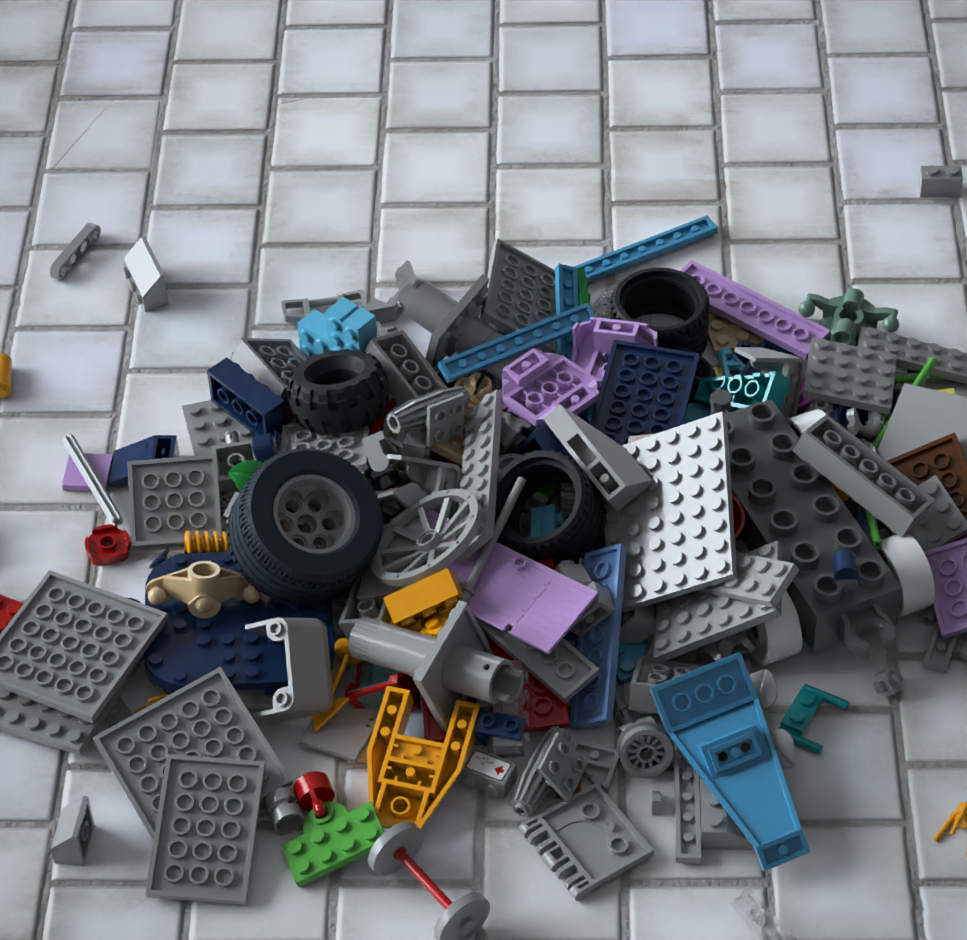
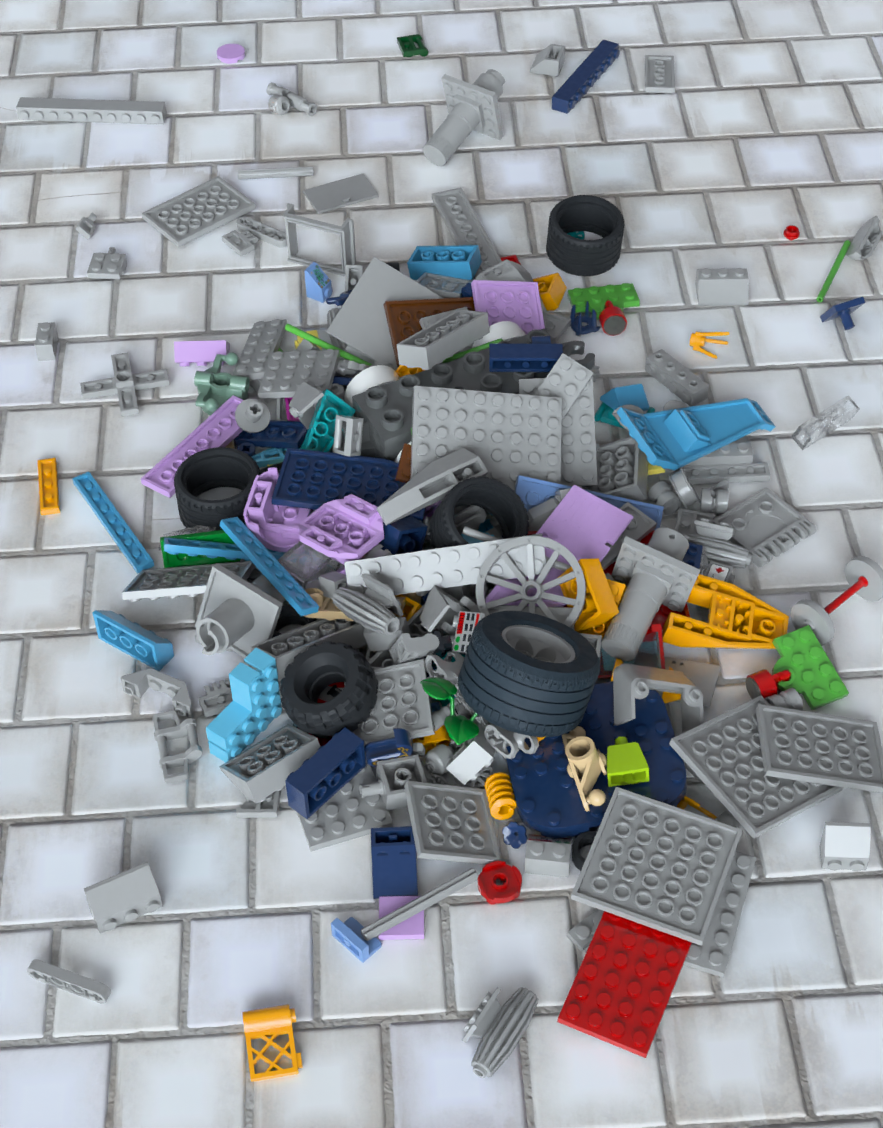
camera: 95 degrees left, 0 degrees up
(77, 426) = (350, 936): none -> medium blue panel
(128, 576) = (548, 856): none -> light grey slope
(200, 627) = (626, 763): none -> lime torso
(463, 264) = (133, 639): none -> dark azure slope
(630, 787) = (714, 500): none -> light grey wheel
(701, 394) = (352, 438): none -> light grey tile
(704, 203) = (48, 486): none -> light orange tile
(788, 339) = (252, 415): none -> light grey piece
(815, 546) = (523, 357): none -> dark blue brick
(824, 713) = (626, 395): none -> dark azure slope
(869, 250) = (124, 384): none -> light grey piece
(879, 779) = (676, 378): none -> light grey brick
(926, 311) = (199, 352): none -> lavender slope

